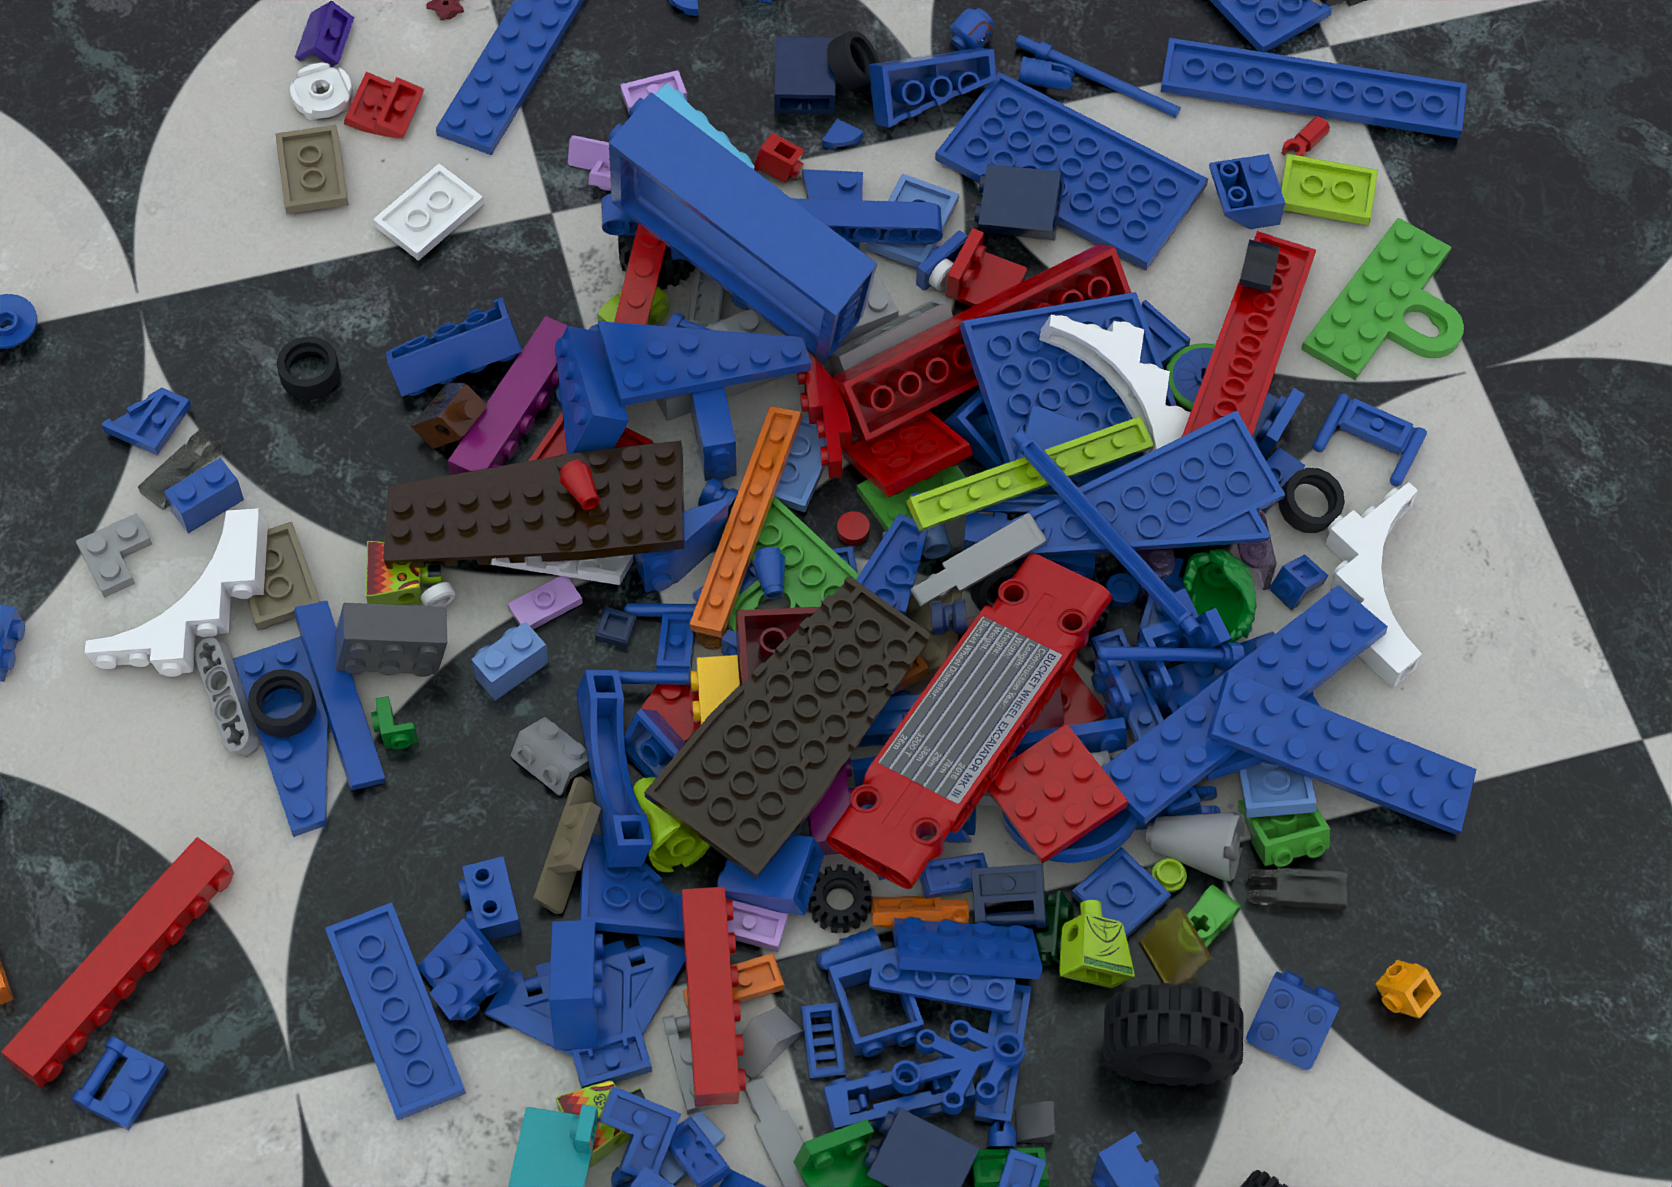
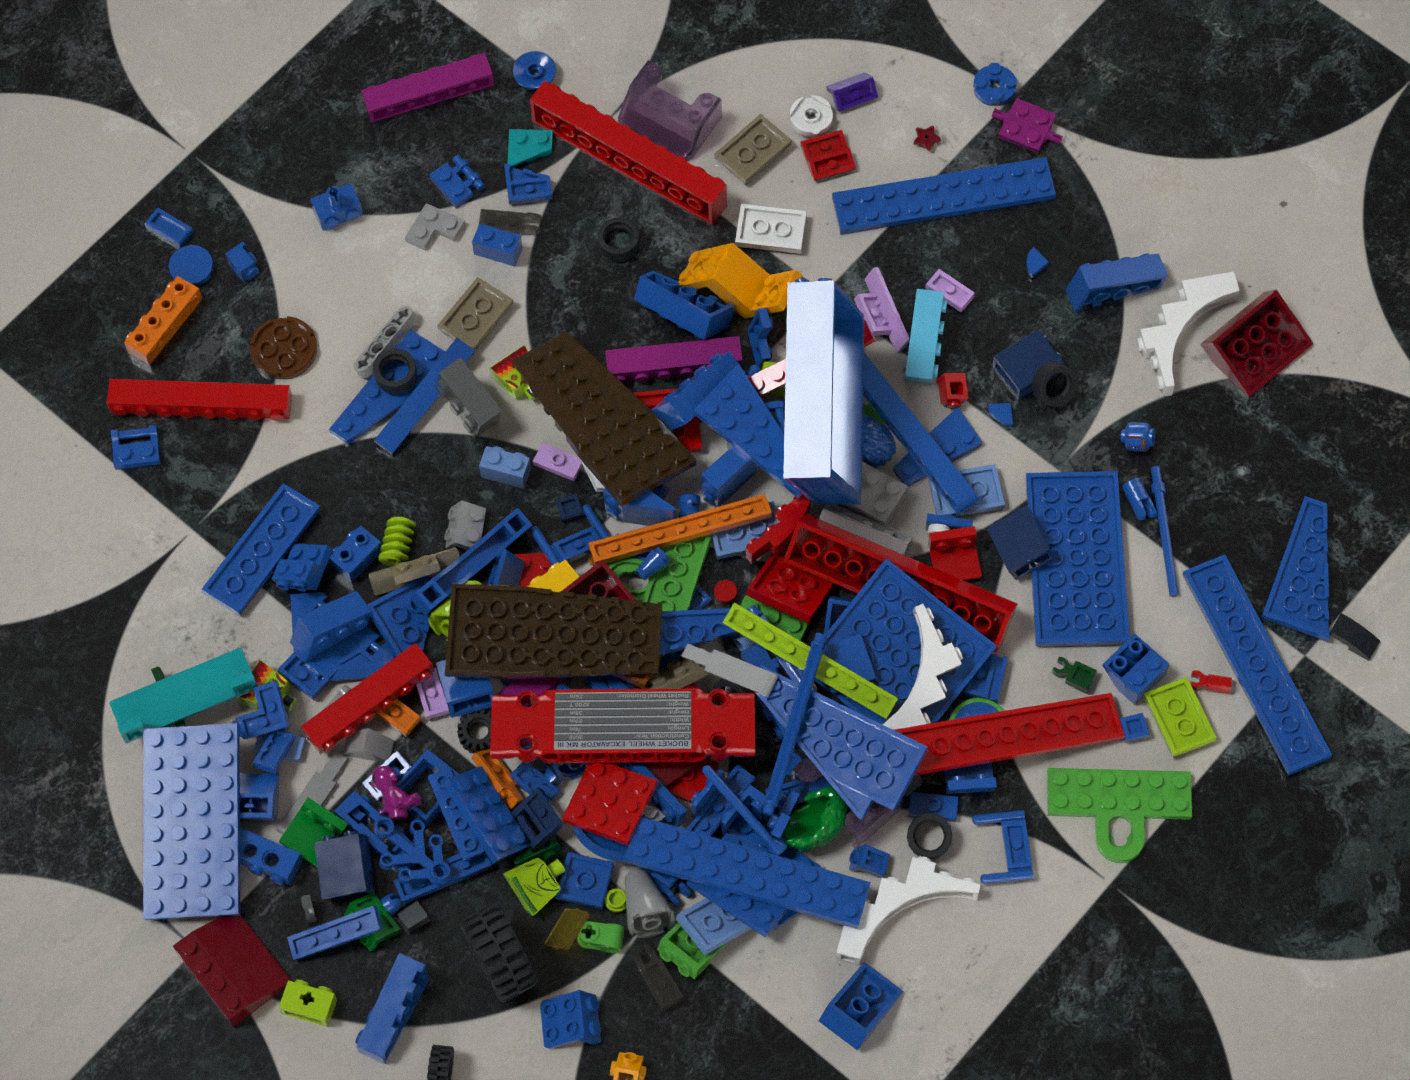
camera: 60 degrees right, 5 degrees up
(75, 500) = (452, 186): none -> blue plate
(96, 389) = (528, 145): none -> teal wing
(129, 821) = (283, 347): none -> reddish brown tile
(192, 227) = (667, 118): none -> clear purple windscreen
(203, 611) = (426, 294): white arch -> none
(207, 286) = (629, 152): none -> red brick
(393, 735) = (424, 431): green bracket -> none
(438, 595) = (520, 404): white tile -> none
(454, 409) = (638, 331): reddish brown torso -> none
(478, 270) = (738, 279): none -> light orange bracket
(512, 842) = (396, 541): none -> lime piece
(558, 302) = (758, 333): none -> blue plate
(579, 482) = (622, 424): red cone -> none
(850, 948) = (451, 756): blue hinge -> none
(876, 1041) = (394, 799): none -> magenta animal
(917, 83) = (1073, 435): blue wedge -> none
(940, 617) = (679, 674): dark blue wheel -> none
(956, 849) = (550, 775): none -> blue tile
(1210, 249) = (1078, 676): none -> dark green plate
(1259, 265) = (1075, 705): black slope -> none
(1312, 235) = (1134, 727): none -> blue plate
(1341, 752) = (752, 948): blue plate -> none
(1475, 694) = (860, 1006): none -> blue slope

